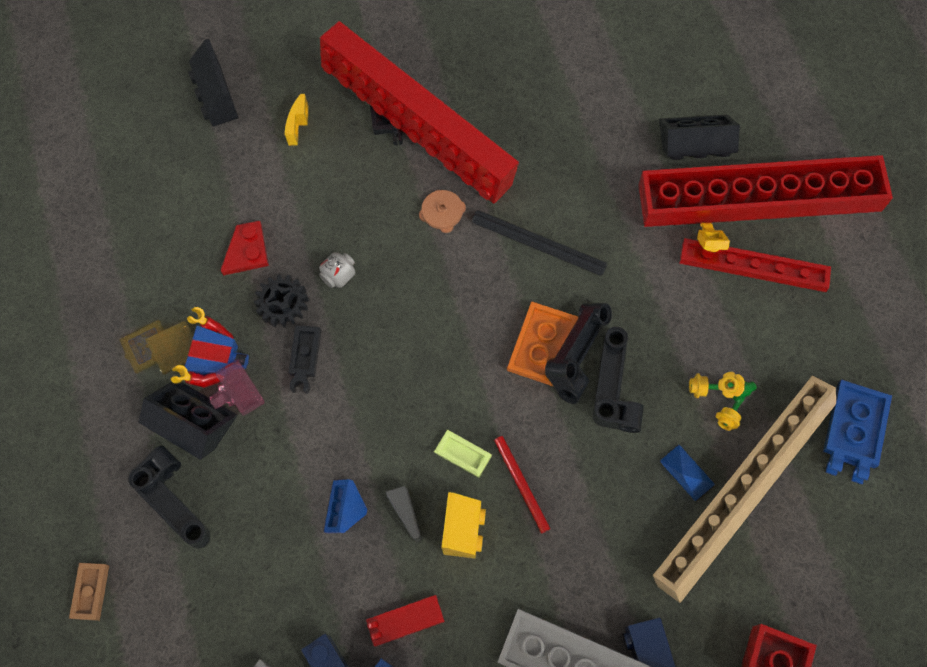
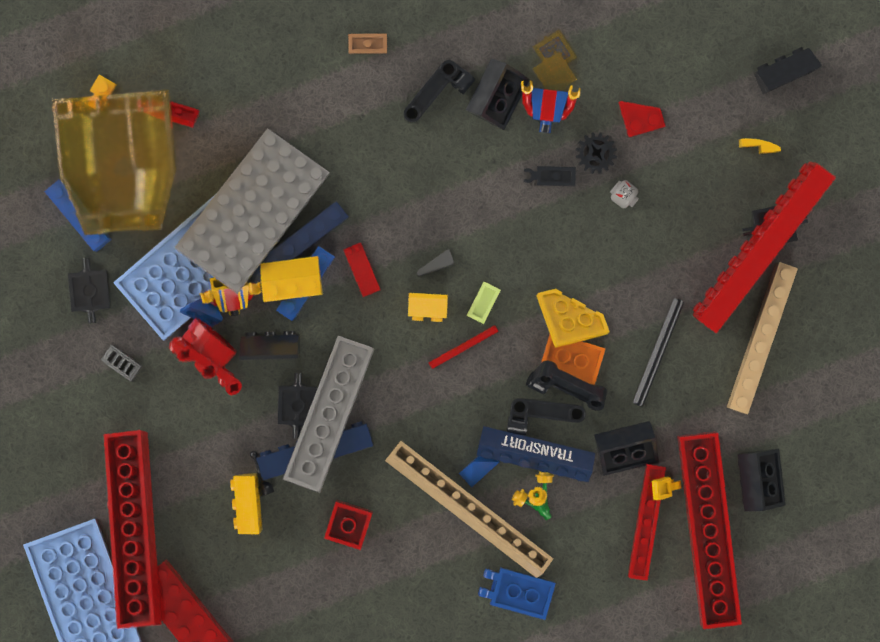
camera: 80 degrees right, 20 degrees up
(236, 389) = (521, 128): clear pink hinge -> none
(344, 507) = (438, 218): blue slope -> none
(442, 210) = (683, 273): nougat piece -> none
(490, 343) = (570, 319): none -> yellow plate
(530, 126) = (762, 337): none -> tan brick
(659, 283) = (626, 448): none -> black slope
(669, 395) = (536, 454): none -> dark blue brick

